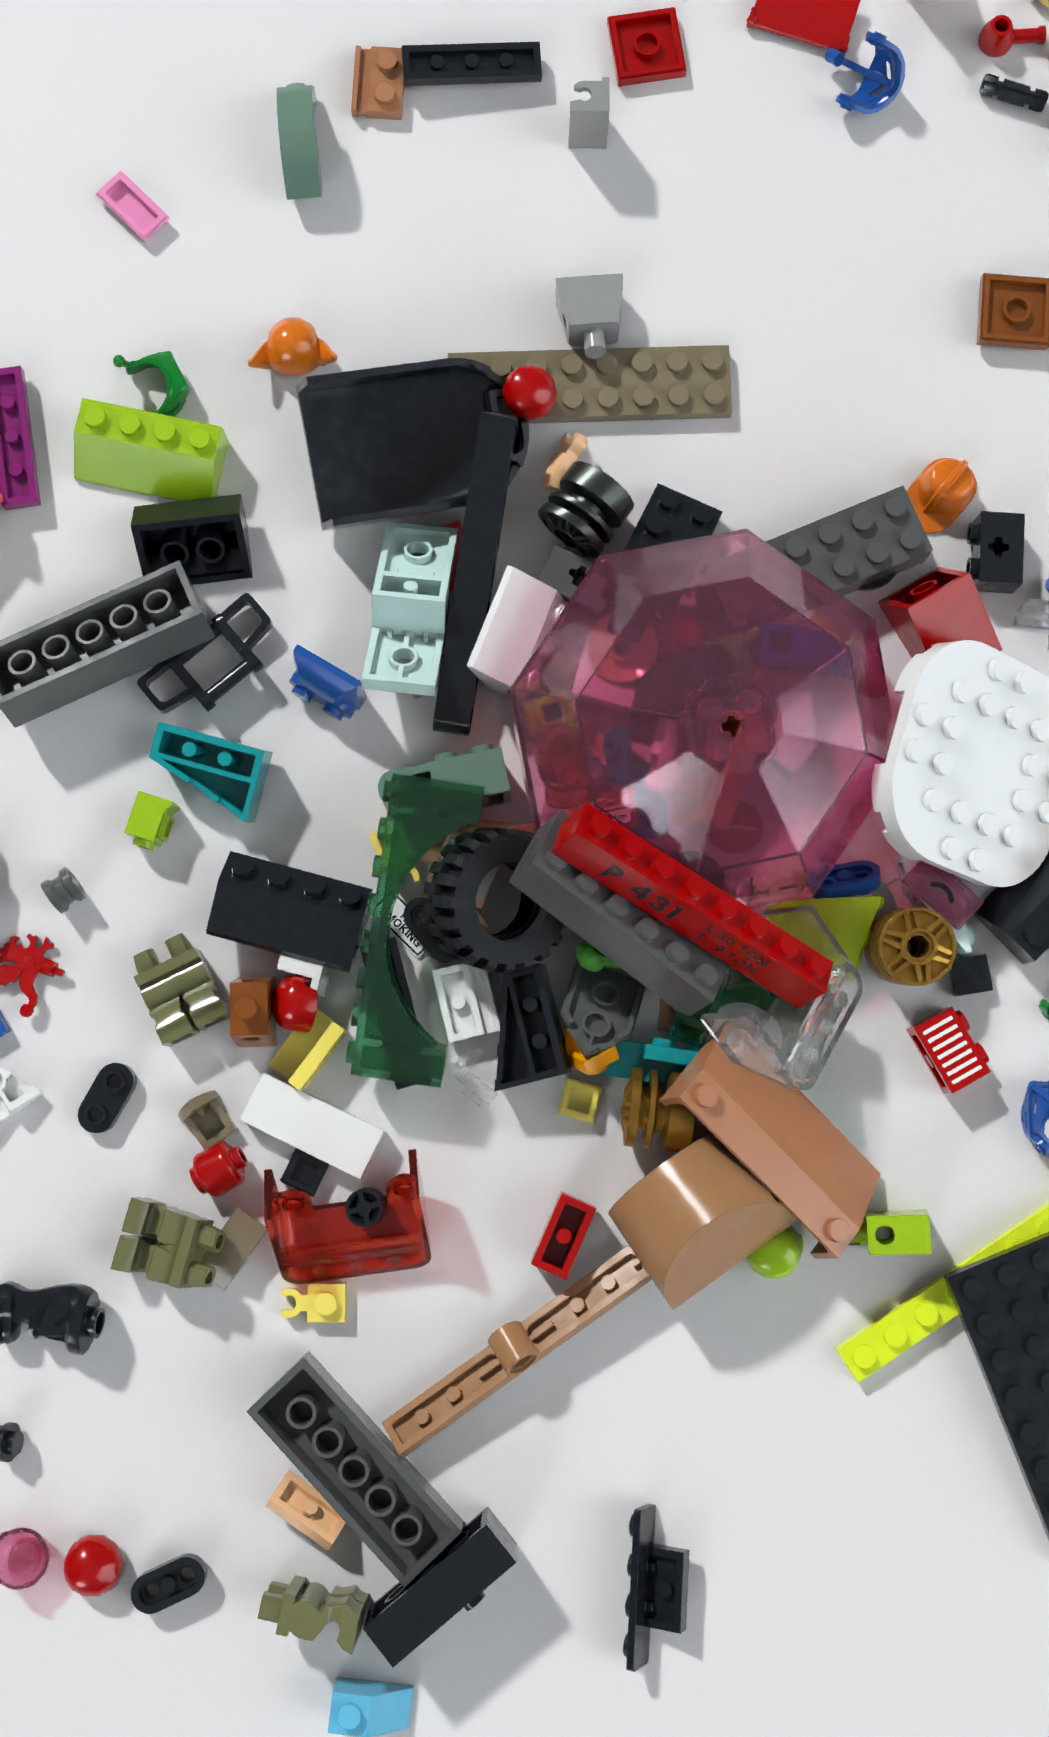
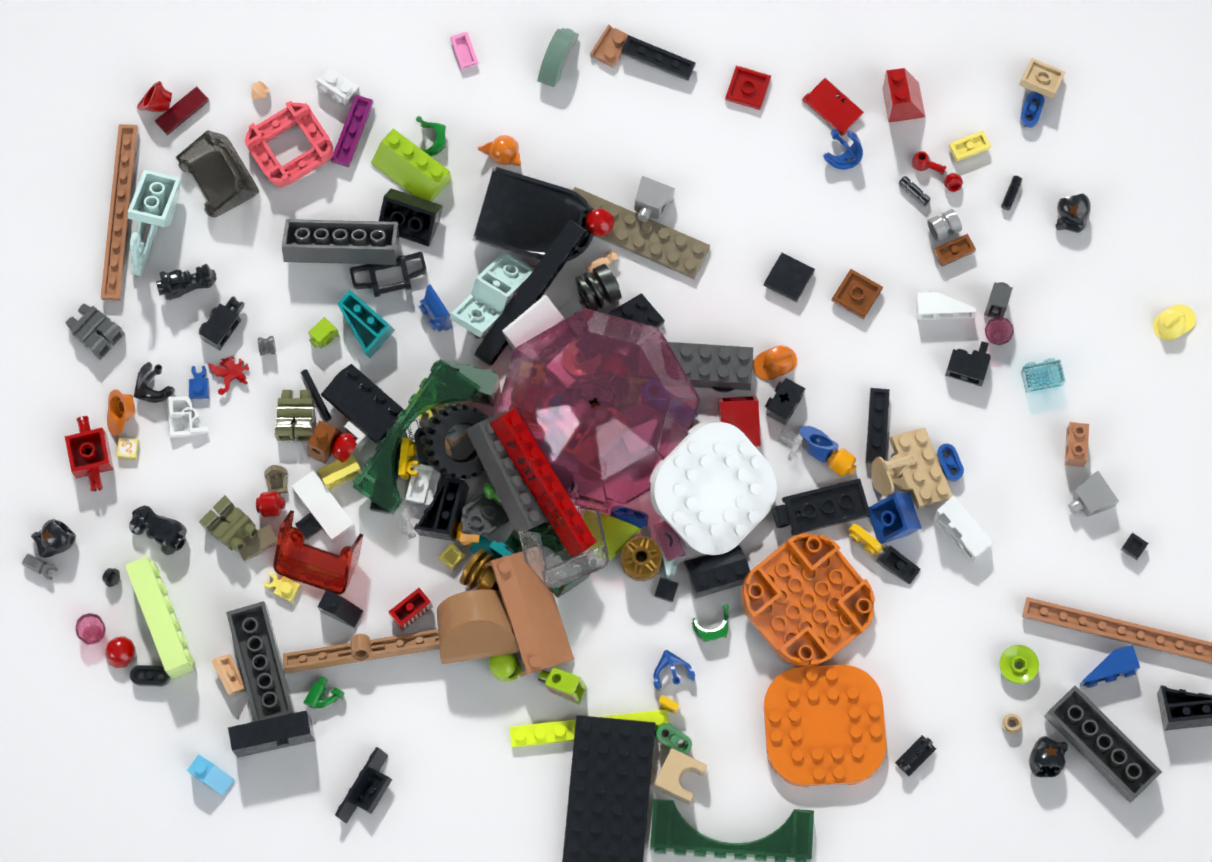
camera: 30 degrees right, 10 degrees down
(106, 1098) = (237, 450): black plate -> none
(132, 1477) = (158, 614): none -> yellowish green brick
(196, 934) = (316, 396): none -> black bar
(309, 1607) = (211, 719): olive hips -> none
(359, 1208) = (325, 550): black wheel -> none
(410, 957) = (406, 461): none -> yellow plate
(439, 1293) = (339, 609): none -> black slope
(475, 1461) = (316, 692): none -> green plant
(590, 118) = (701, 110): light grey hinge -> none
(888, 337) = (789, 277): none -> black slope
(949, 1049) = (635, 617): red brick -> none

